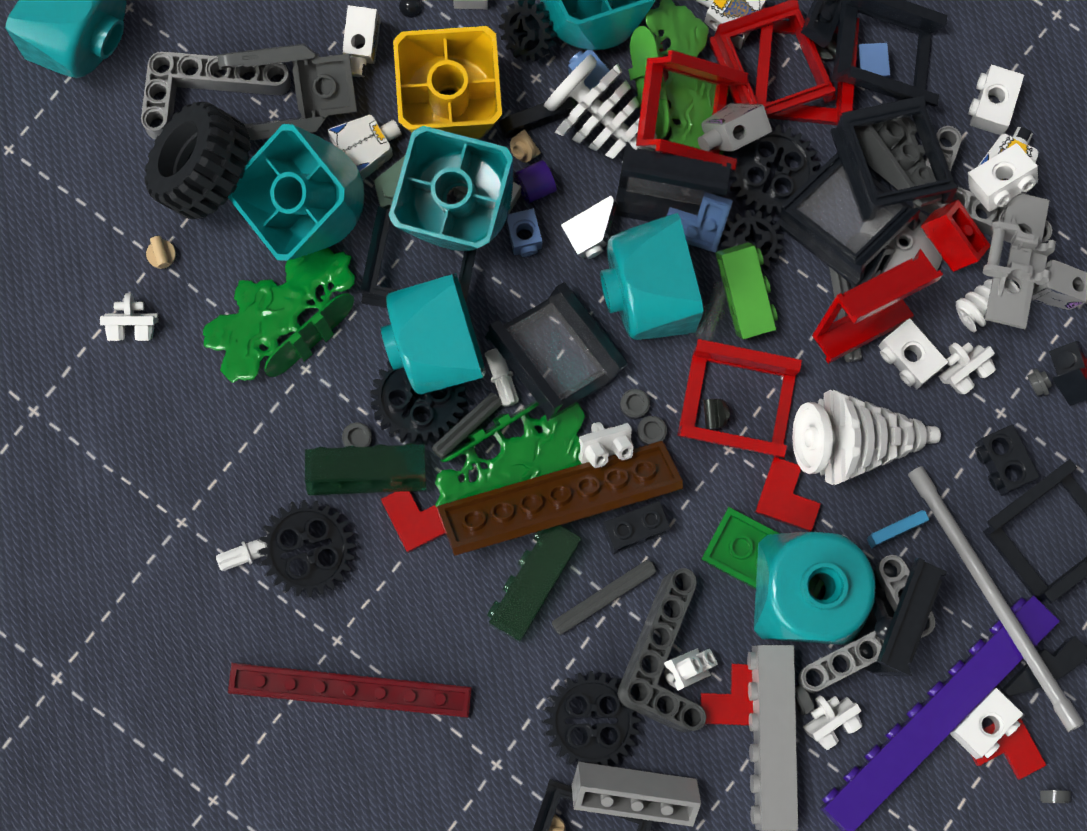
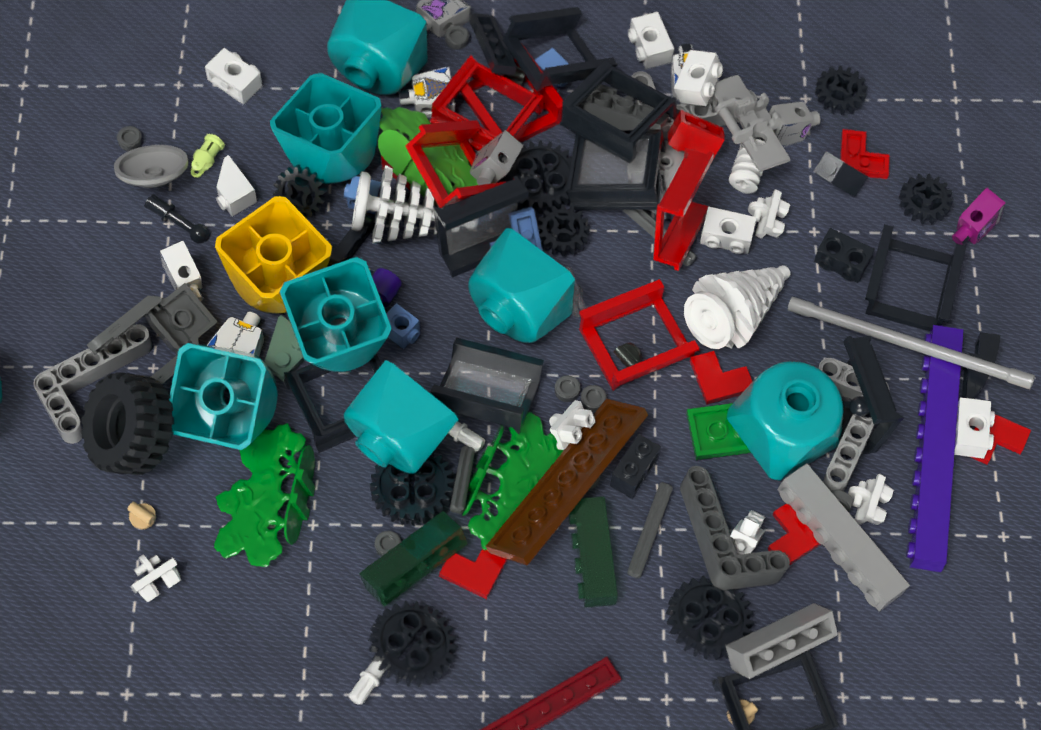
camera: 35 degrees left, 15 degrees down
(592, 228) = (446, 293): white slope -> none
(746, 290) = (586, 260): bright green brick -> none
(897, 528) = (812, 342): dark azure tile -> none
(1039, 382) = (823, 194): dark grey plate -> none

